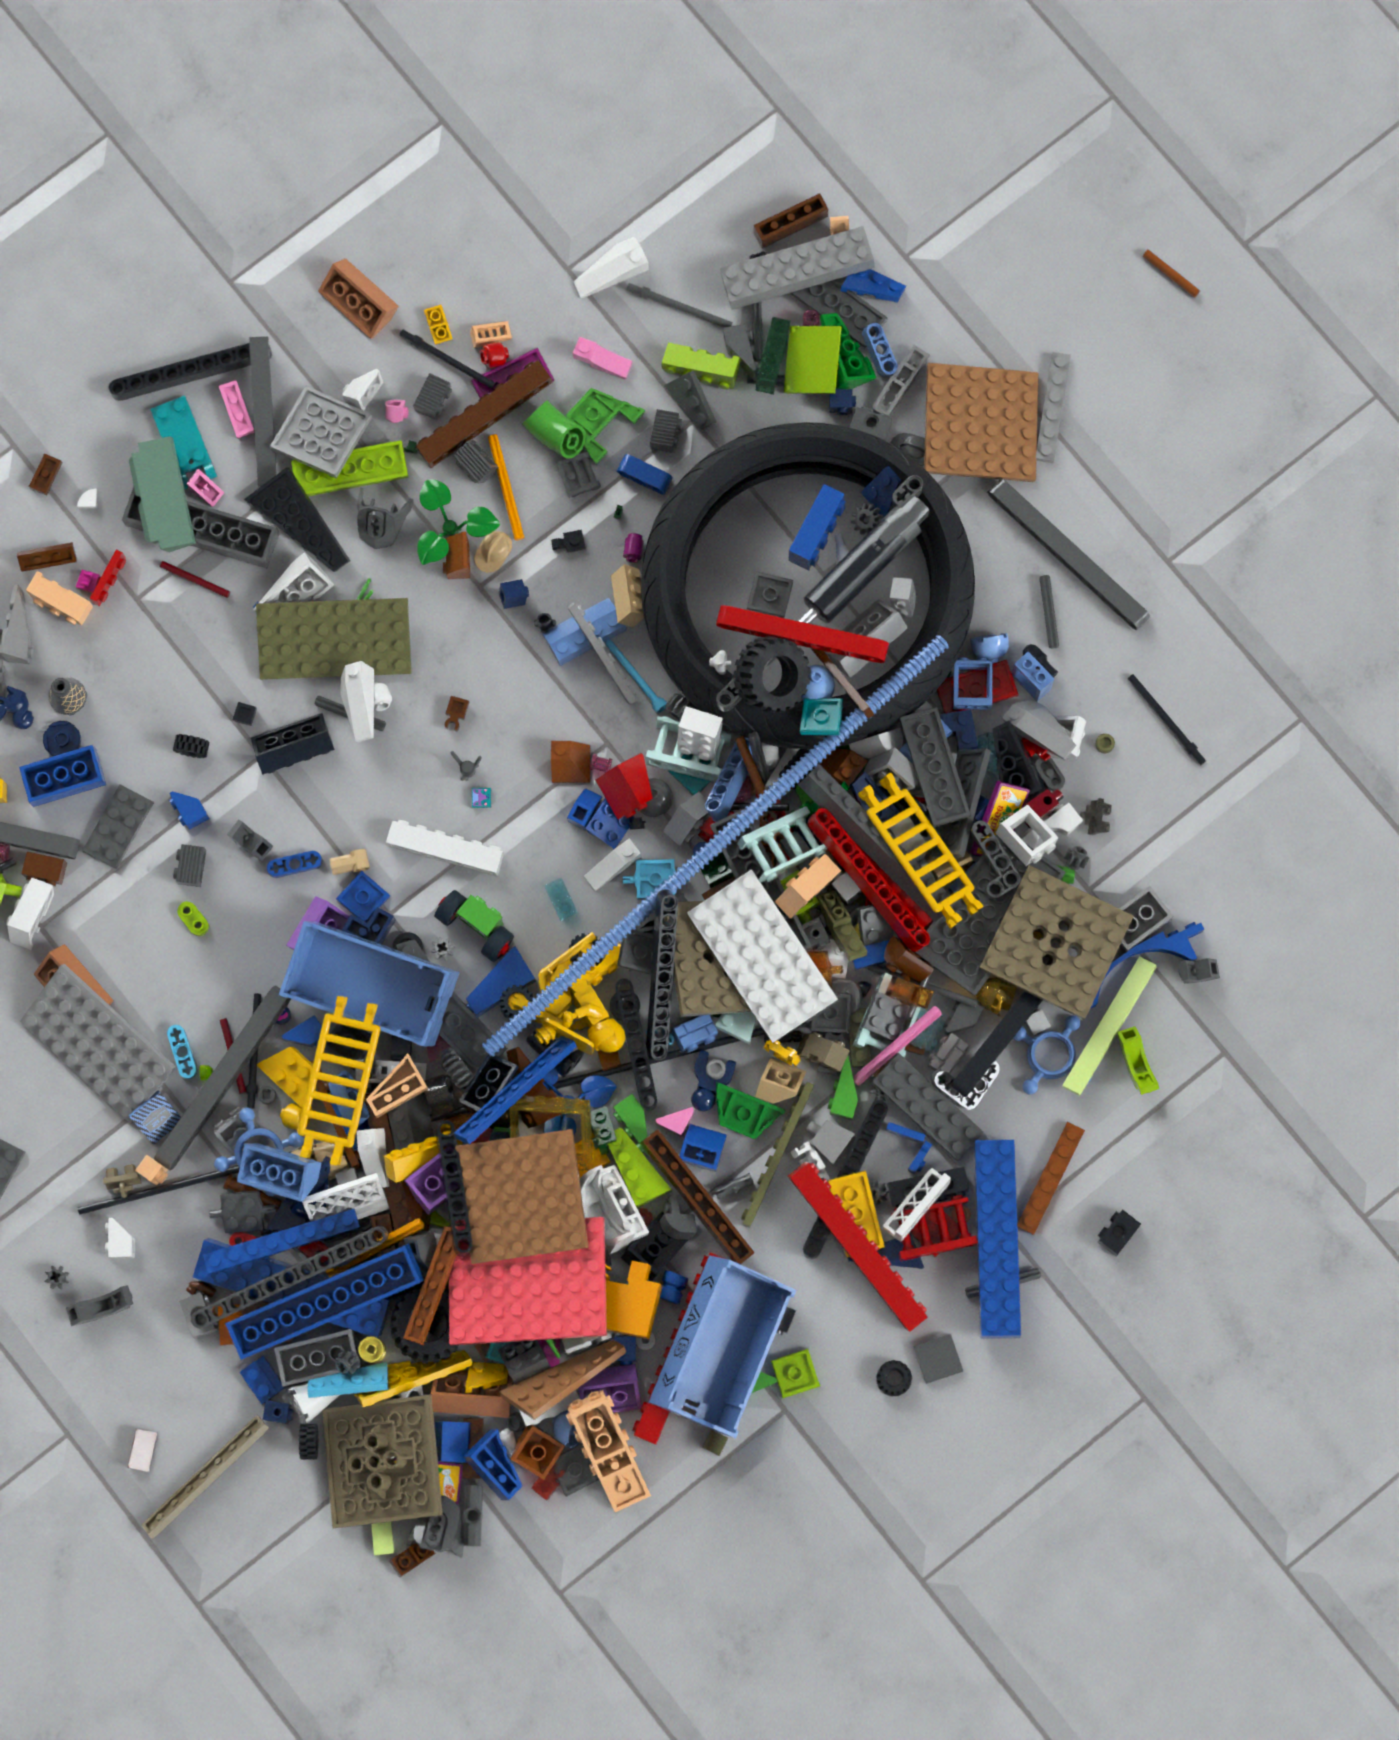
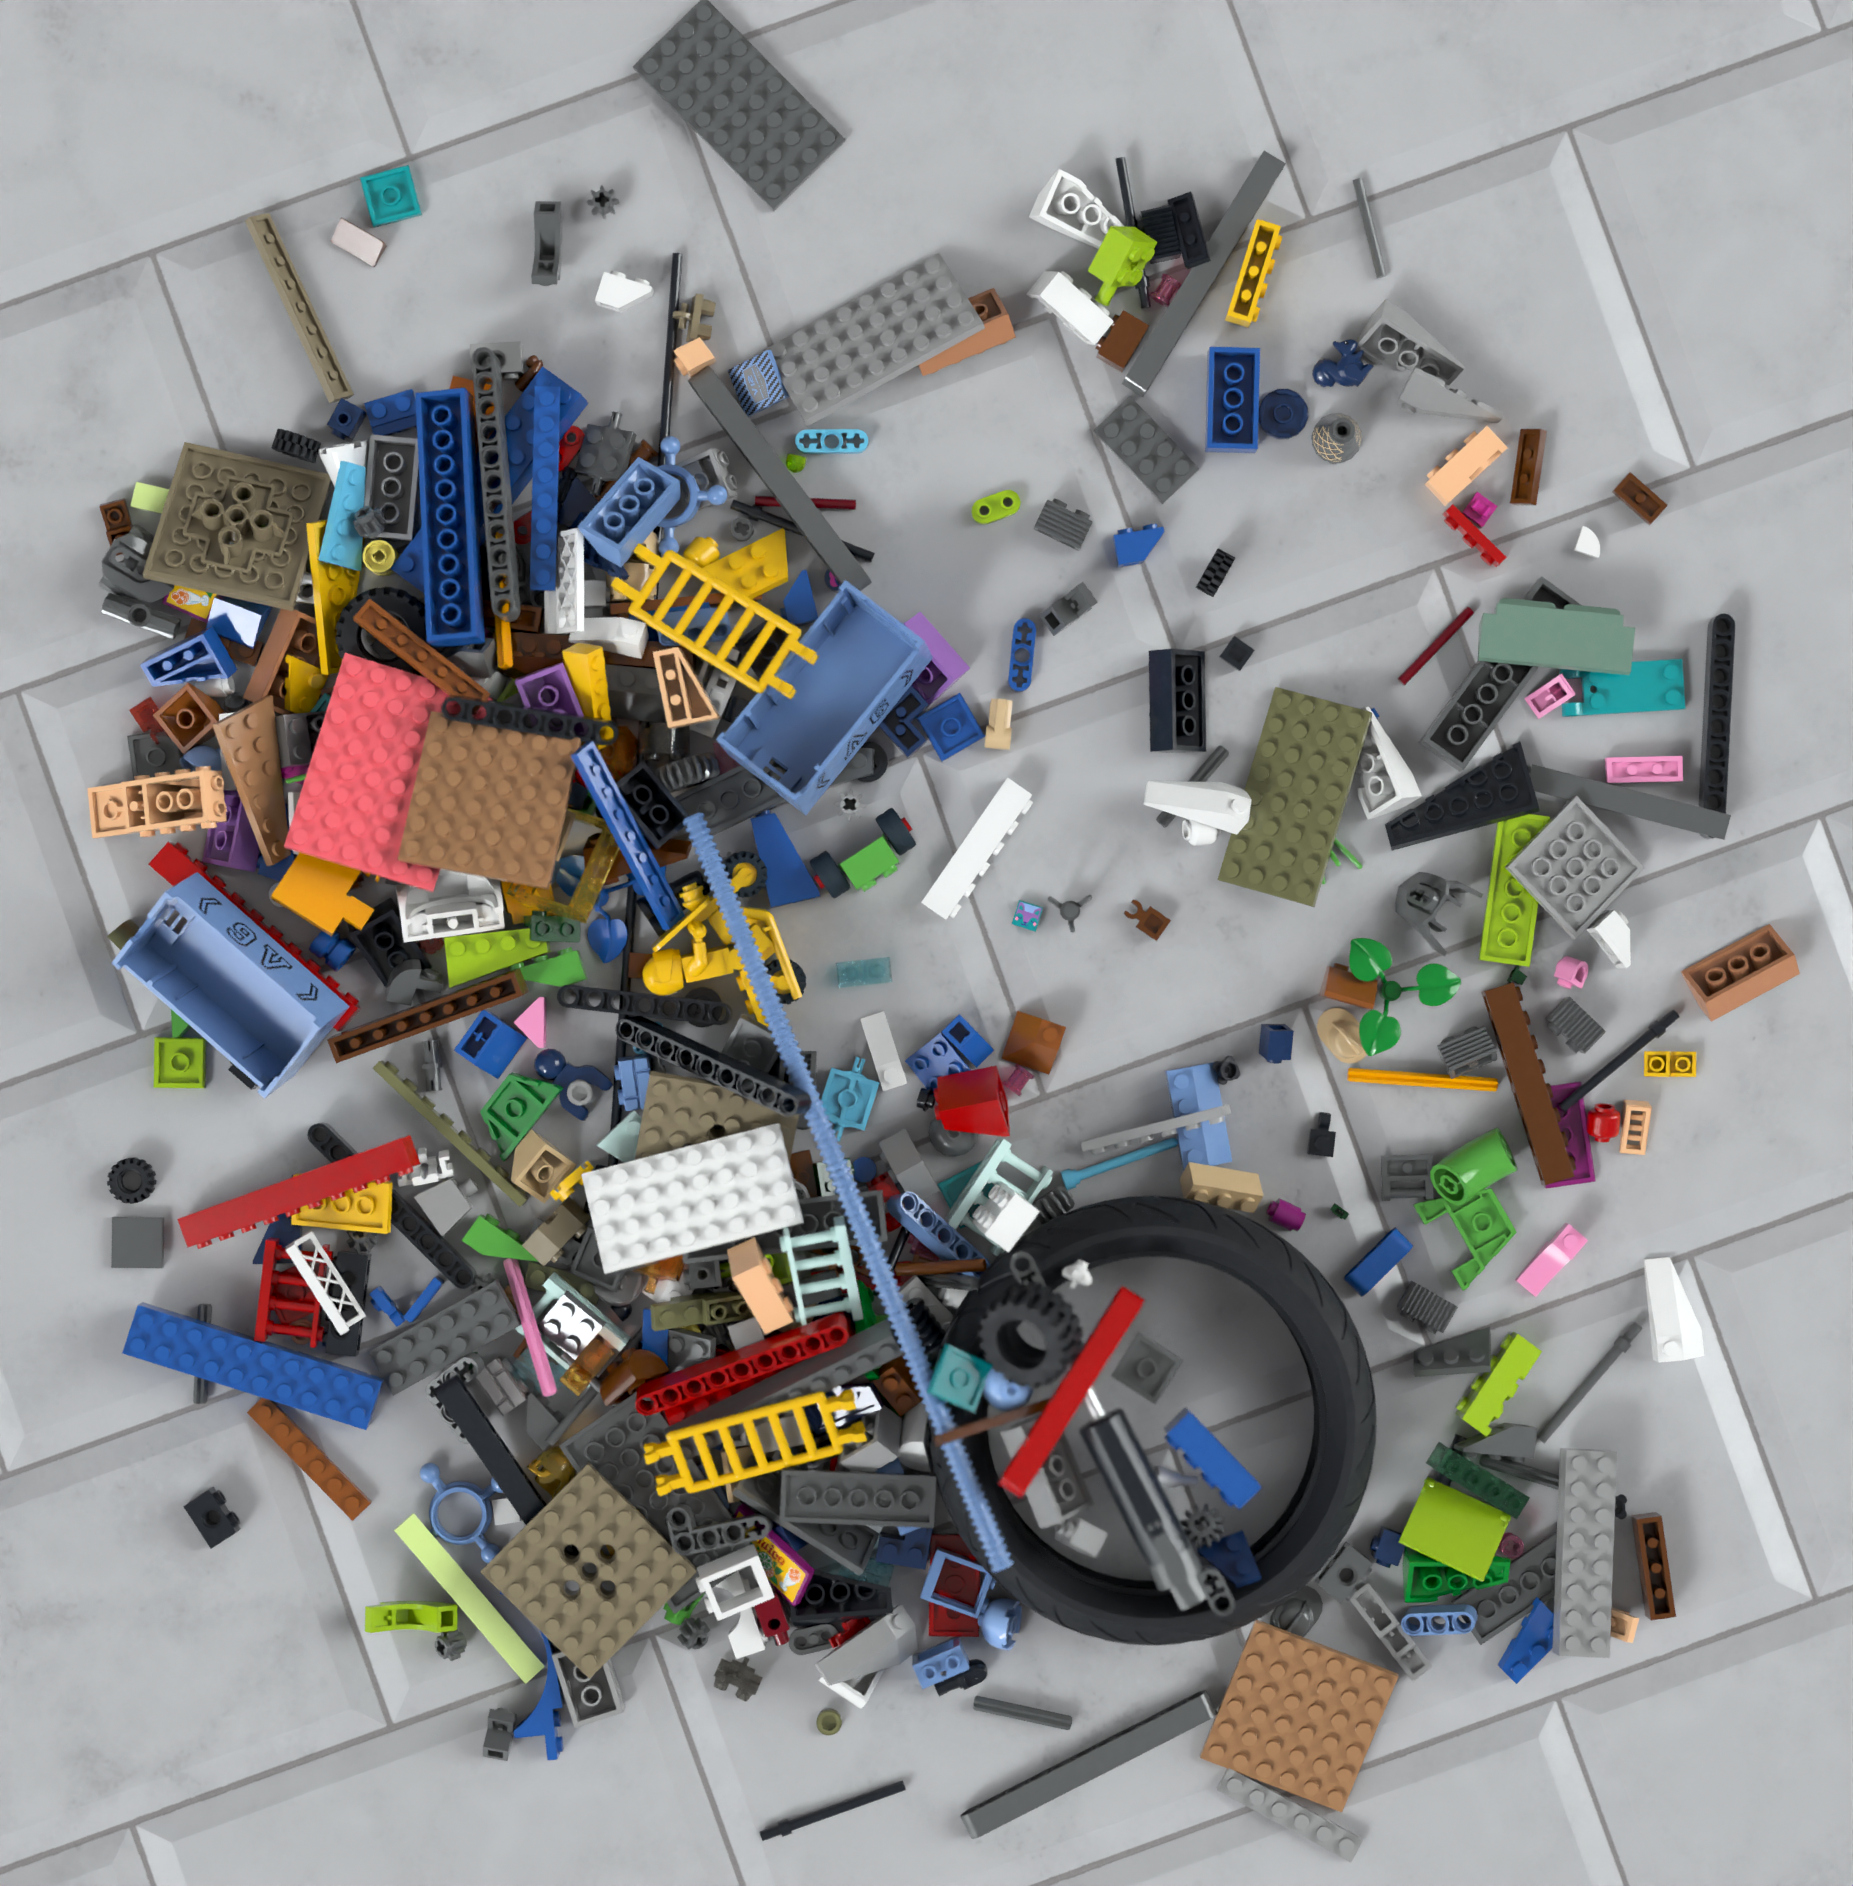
camera: 105 degrees right, 10 degrees up
(100, 1438) = (391, 196): none -> teal tile
(1147, 1027) = (450, 1644): none -> dark grey gear

